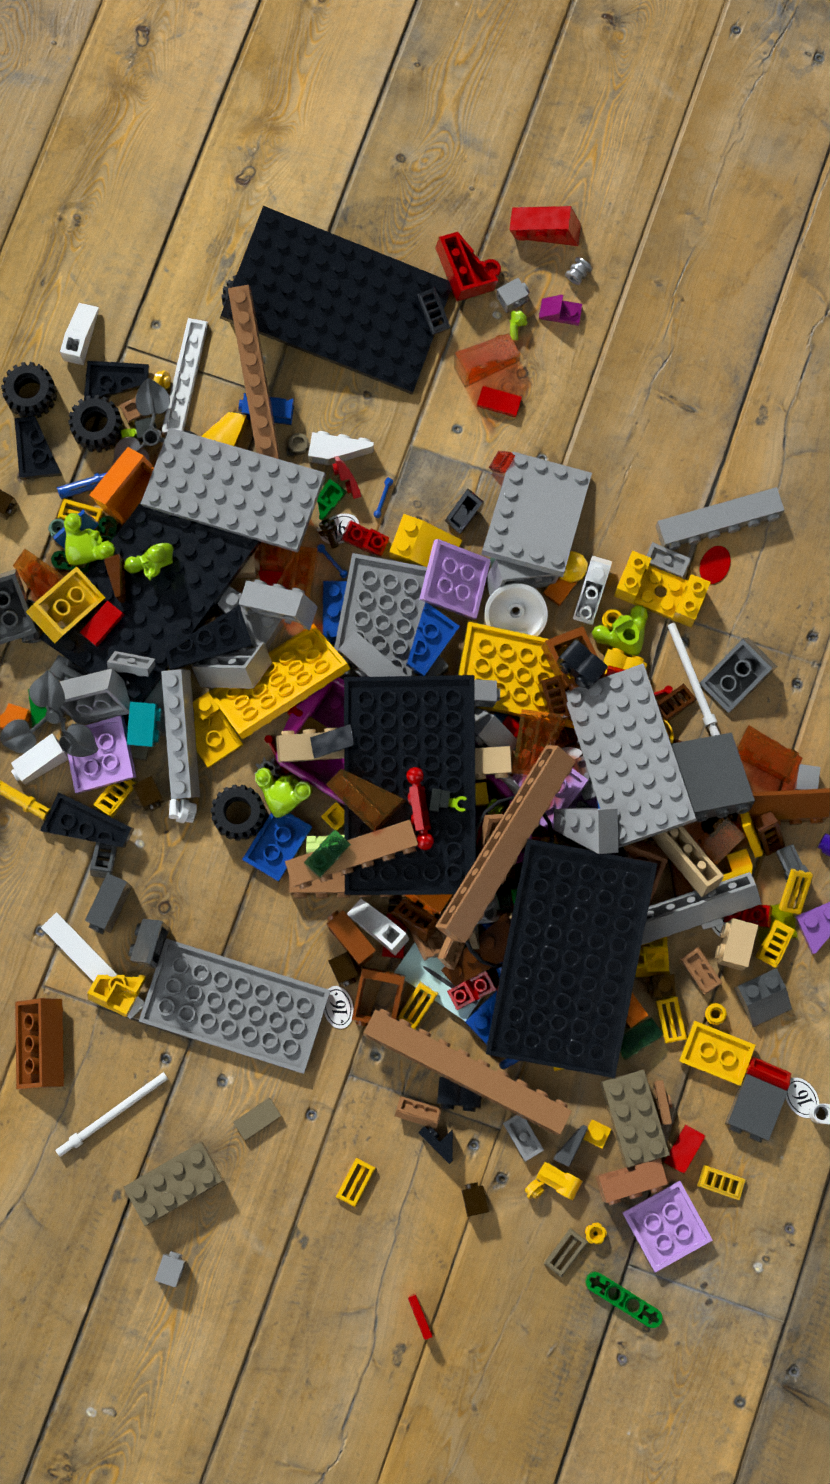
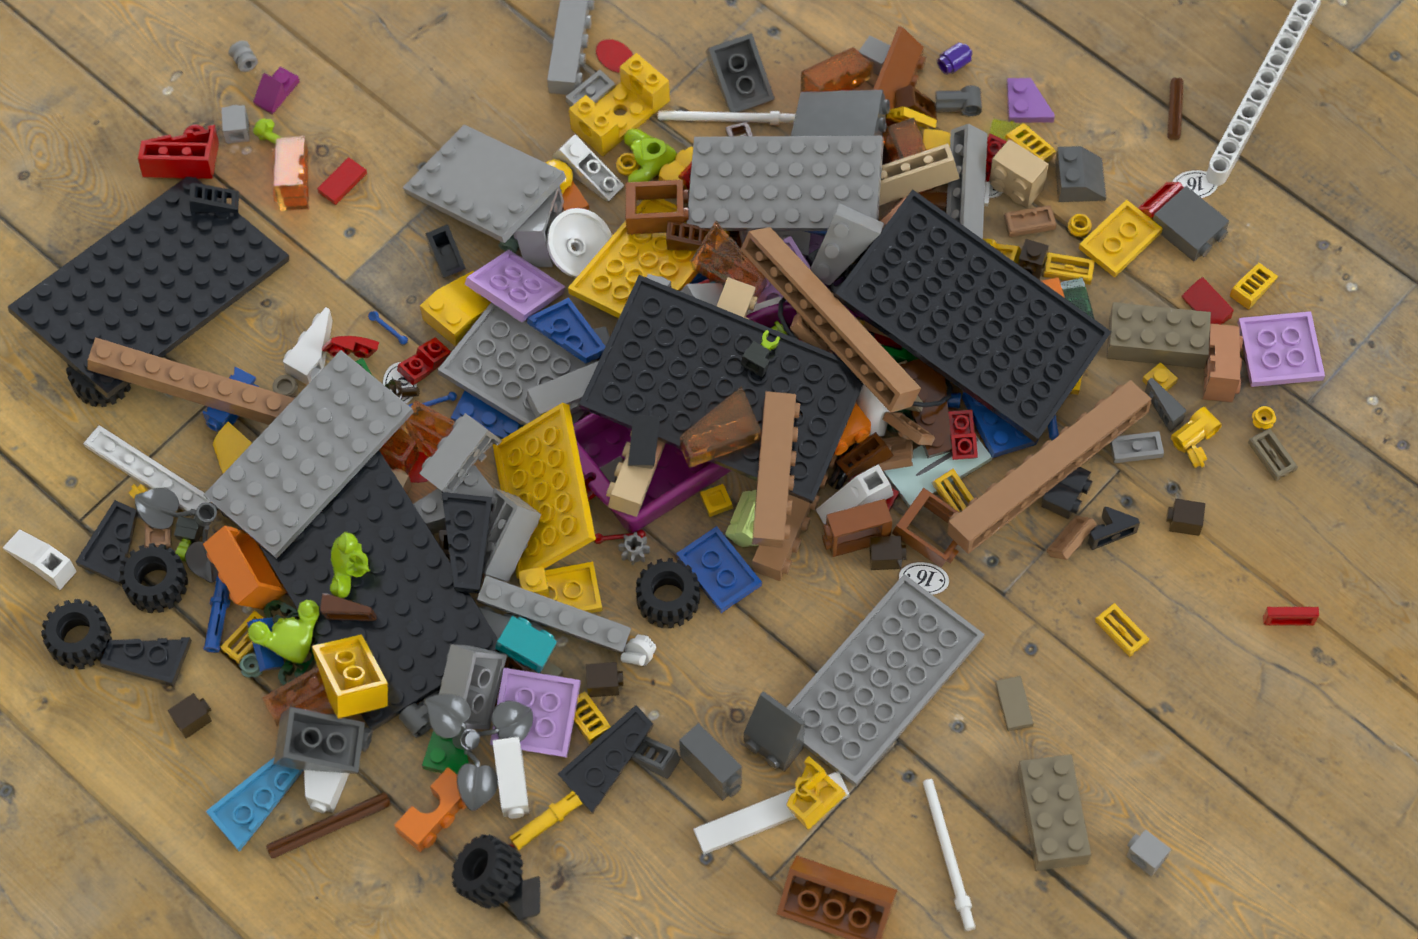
camera: 65 degrees left, 15 degrees down
(102, 623) = (390, 647): red tile -> none
(131, 663) = (453, 627): light grey plate -> none
(282, 794) = (669, 535): lime head -> none
(327, 854) = (766, 487): clear green slope -> none
(418, 801) = (721, 371): red plate -> none
(501, 461) = (409, 200): clear red tile -> none
(545, 224) = (177, 64): red wedge -> none
(581, 664) = (669, 191): black brick -> none
(622, 1301) = (1343, 420): green beam -> none
(663, 1102) = (1151, 300): medium nougat plate -> none
(792, 890) = (986, 104): yellow tile -> none

